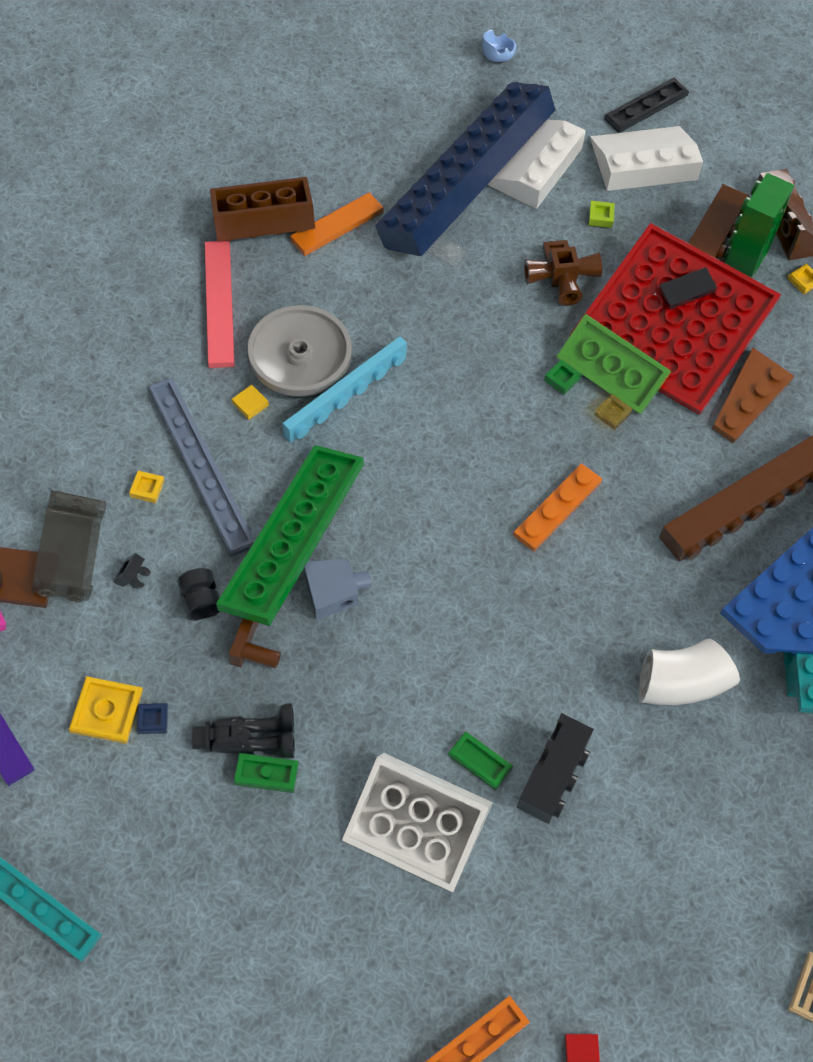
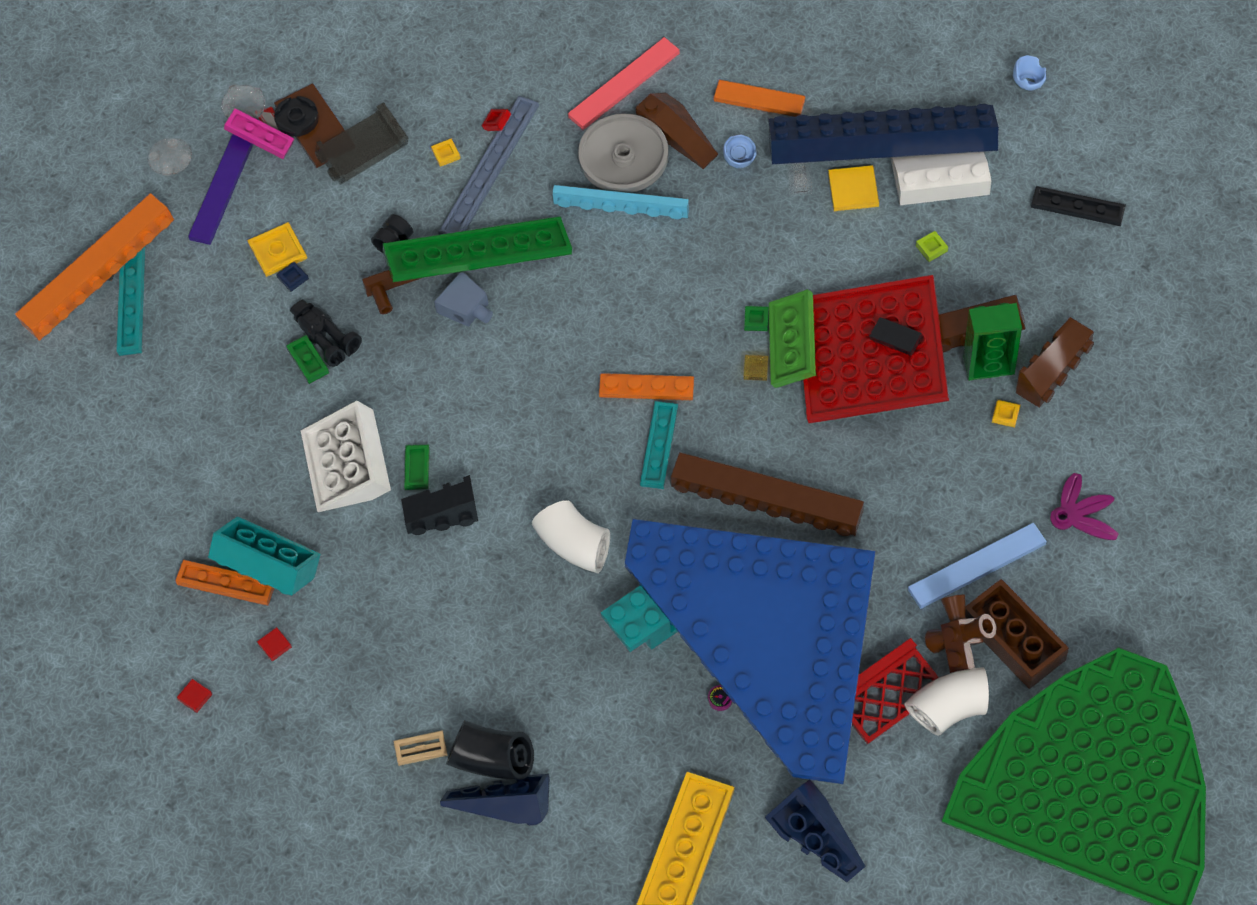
camera: 60 degrees right, 0 degrees up
(129, 571) = (375, 189): black tile -> none
(156, 421) = (496, 119): none -> red tile
(250, 402) = (562, 158): yellow tile -> none
(262, 209) = (717, 46): reddish brown brick -> none
(331, 298) = (678, 127): none -> reddish brown wedge
(381, 265) = (739, 147): none -> light blue hair
(481, 984) = (264, 556): none -> teal brick
(491, 225) = (853, 188): none -> yellow tile
(563, 268) = (850, 254): reddish brown brick -> none
(629, 540) = (659, 445): none -> teal tile
(647, 158) = (1019, 237): white slope -> none
(752, 393) = (864, 442): dark orange wing -> none

